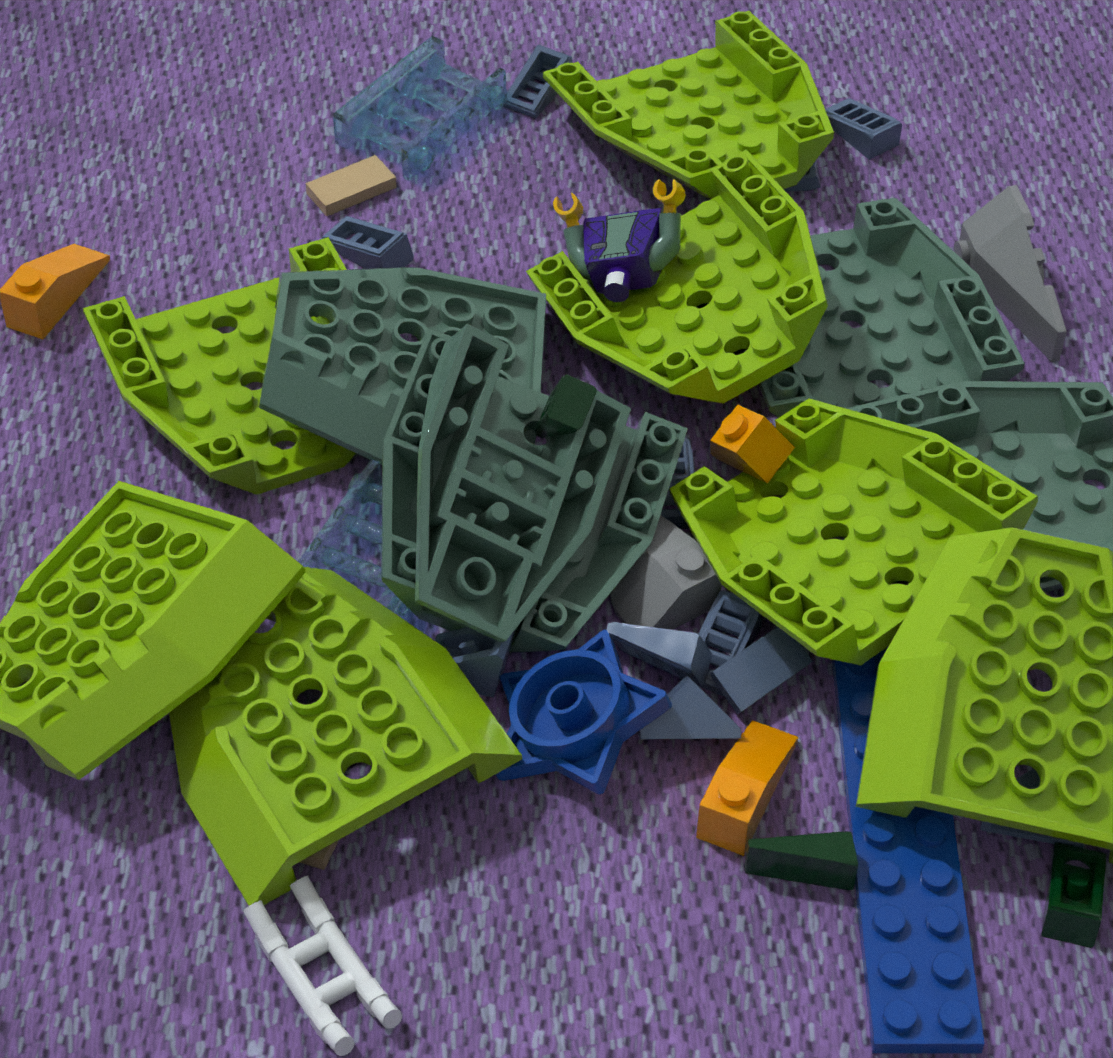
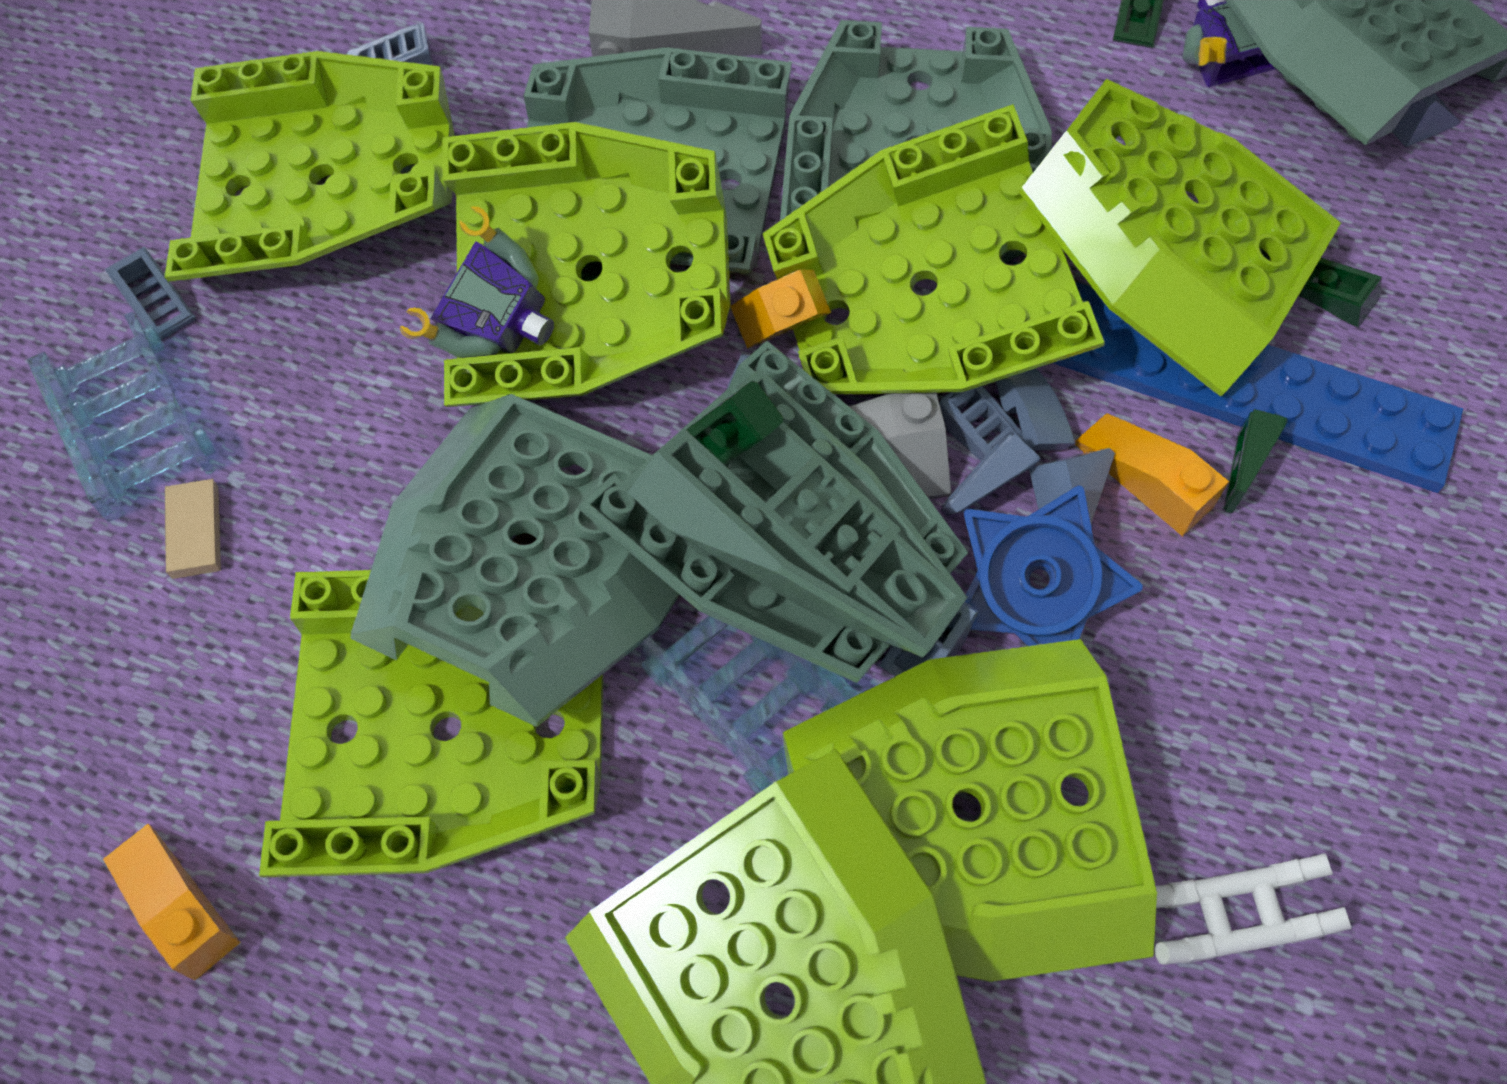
camera: 65 degrees left, 15 degrees up
(393, 244) = (319, 549): sand blue slope -> none

